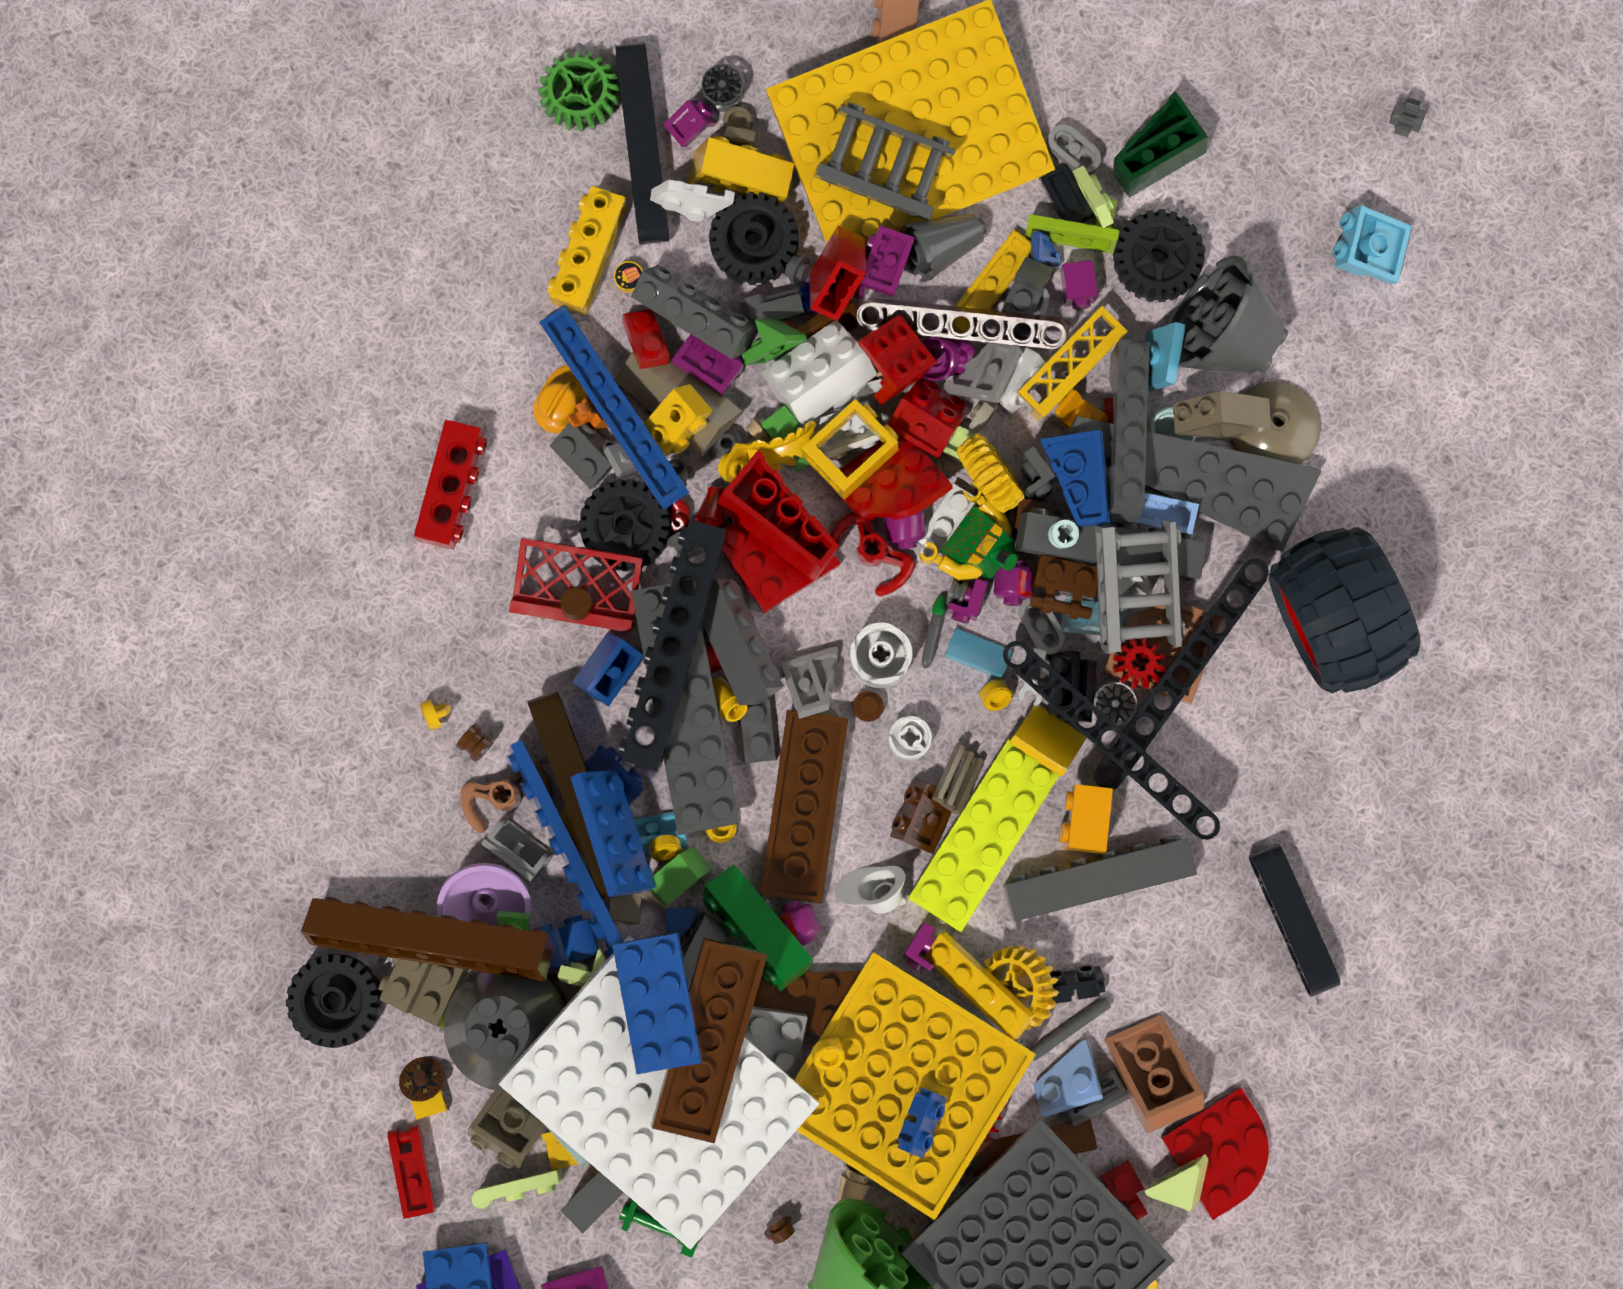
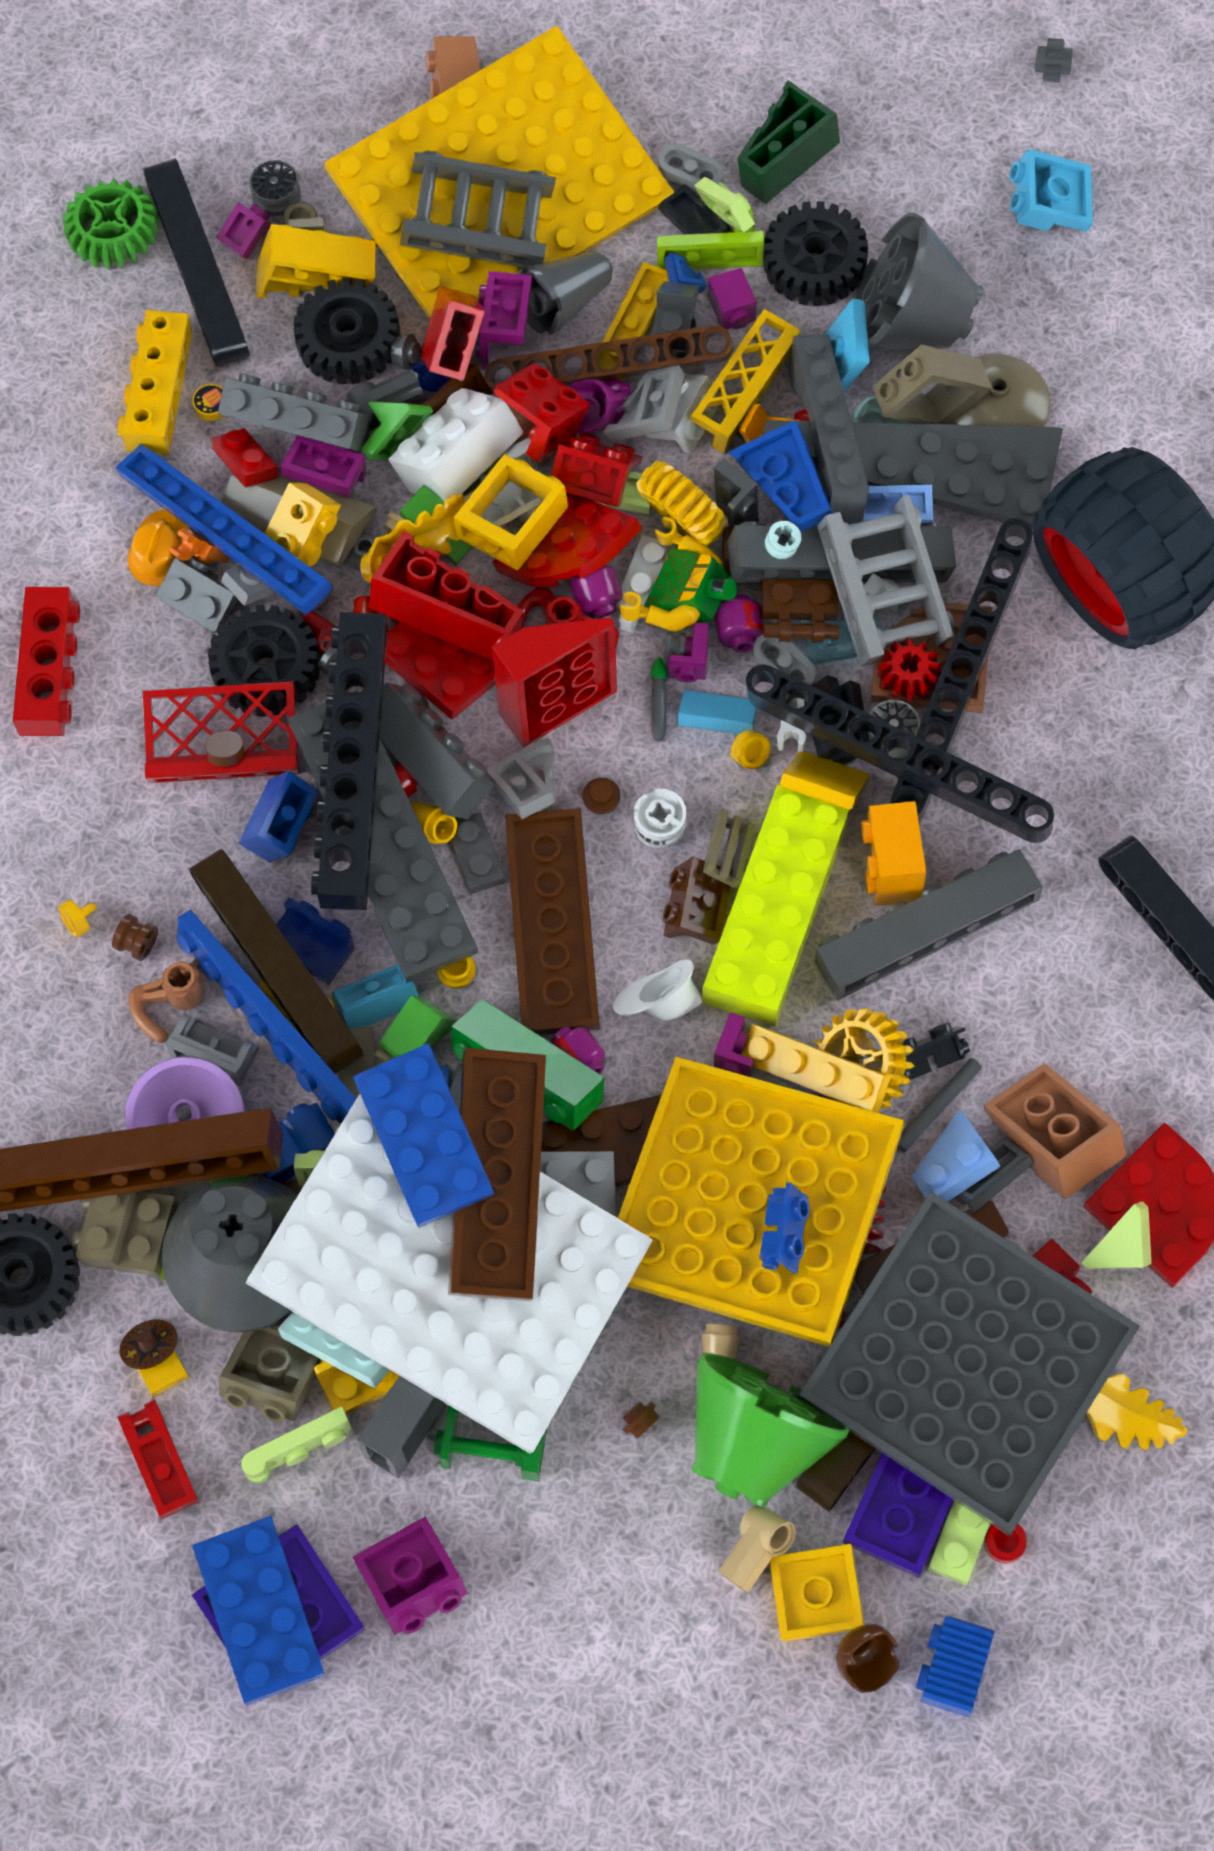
camera: 15 degrees left, 15 degrees down
(613, 833) = (326, 986): blue plate -> none
(665, 848) = (390, 1002): yellow tile -> none
(690, 199) = (264, 298): white wing -> none
(828, 1053) = (649, 1178): yellow tile -> none
(843, 609) = (553, 674): none -> red slope
(865, 646) = (607, 750): white brick -> none
(982, 414) = (657, 449): dark tan plate -> none

